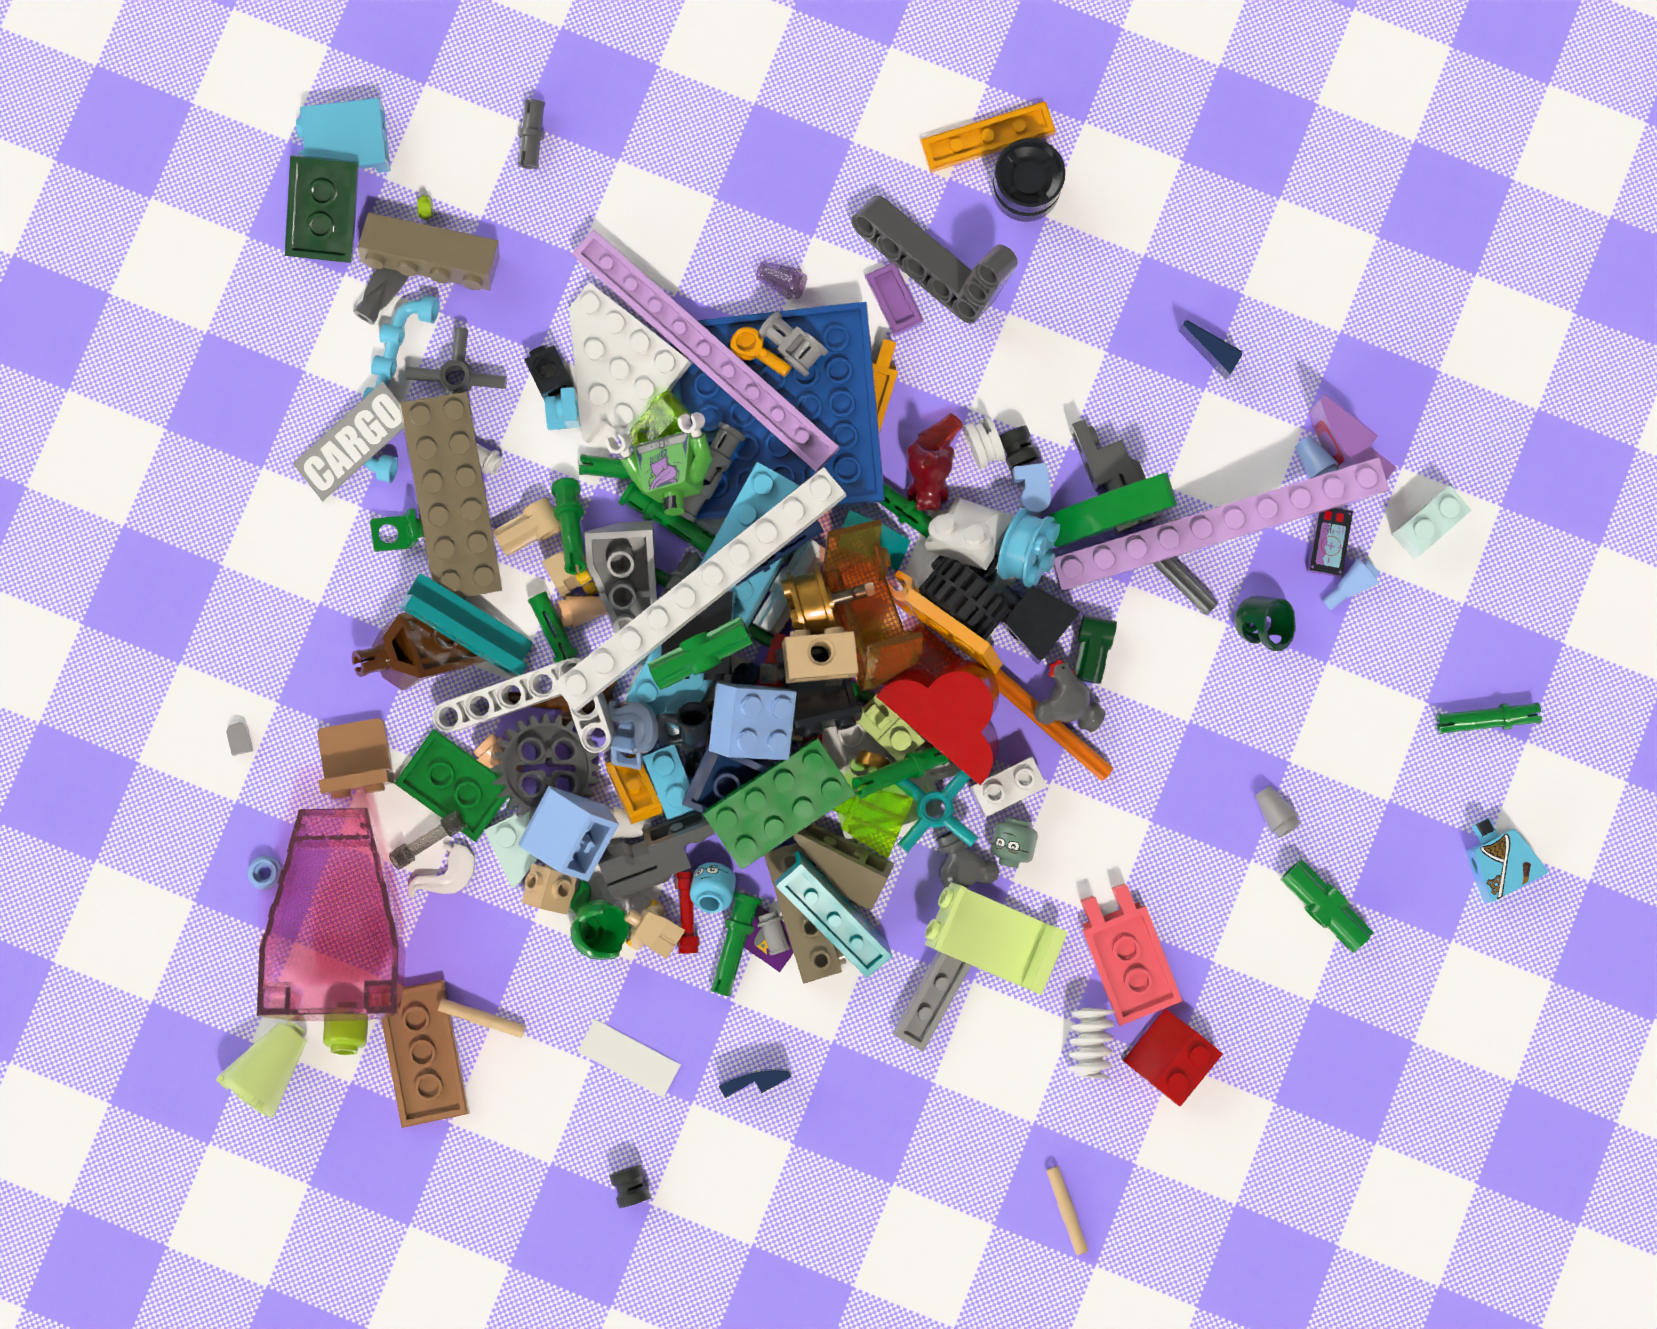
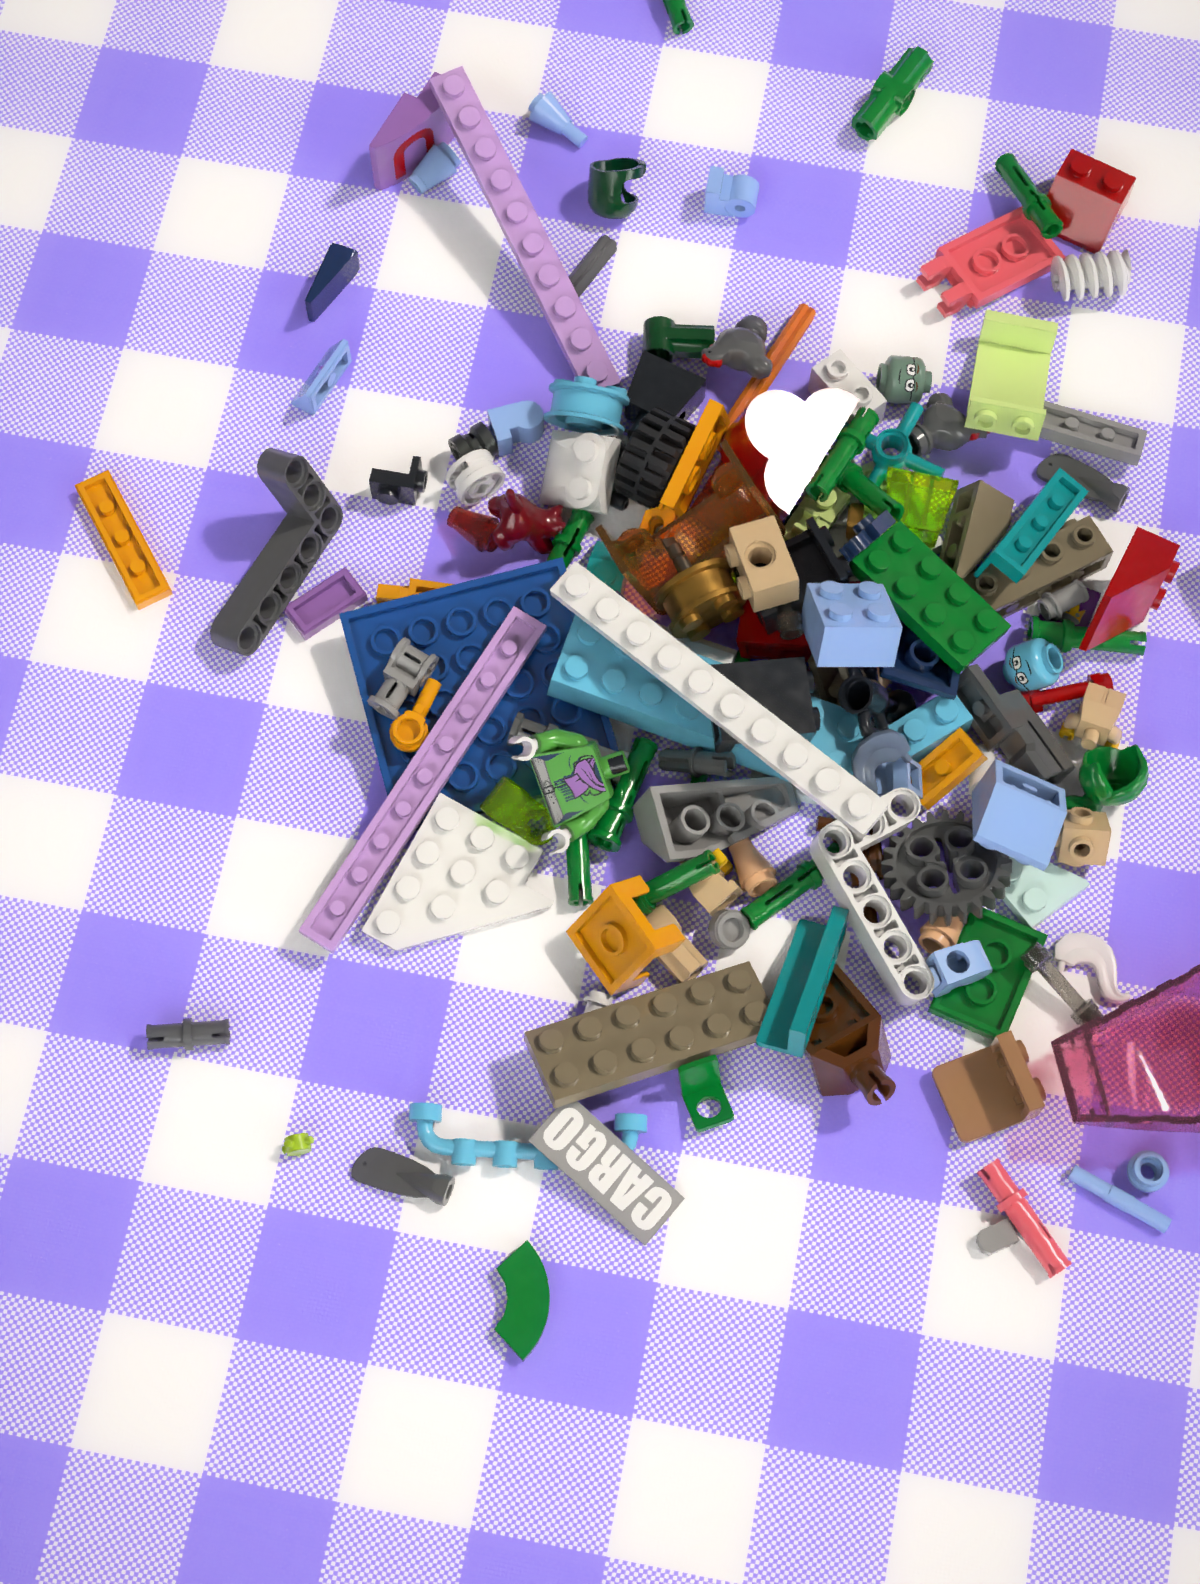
camera: 100 degrees left, 15 degrees down
(249, 844) = (1119, 1199): none -> light blue piece
(259, 758) = (1024, 1218): none -> coral pin
(266, 363) = (526, 1302): none -> green tile
(321, 208) = (321, 1261): dark green plate -> none
(346, 132) = (225, 1259): medium azure panel -> none
(428, 252) = (355, 1122): dark tan brick -> none
(456, 756) = (958, 966): none -> light blue leg
(457, 364) = (484, 1063): dark grey bar -> none
(529, 480) = (619, 938): none -> light orange panel
(532, 579) = (729, 929): none -> light grey tile
(548, 385) = (484, 940): black brick -> none
(562, 410) = (521, 928): medium azure bracket -> none
(700, 653) = (790, 682): green piece -> none
(769, 997) = (1133, 587): none -> red slope
(783, 279) = (323, 719): clear purple cone -> none
(840, 759) = (866, 532): none -> dark blue plate
(889, 981) = (1099, 486): none -> dark grey piece
(940, 768) = (849, 444): none -> green pin
(989, 370) = (398, 487): none -> black bracket
(1028, 179) = (171, 476): black wheel -> none
(1107, 466) = (486, 344): dark grey plate -> none
(1114, 509) = (526, 325): green slope -> none
(1115, 328) = (323, 378): none -> light blue slope
(1151, 1012) = (1035, 204): none -> green pin
(1241, 728) = (730, 194): none -> light blue leg
(1277, 812) = (810, 149): light grey cone -> none
(1330, 542) = (526, 146): tile -> none
(1431, 522) = (484, 57): light aqua brick -> none

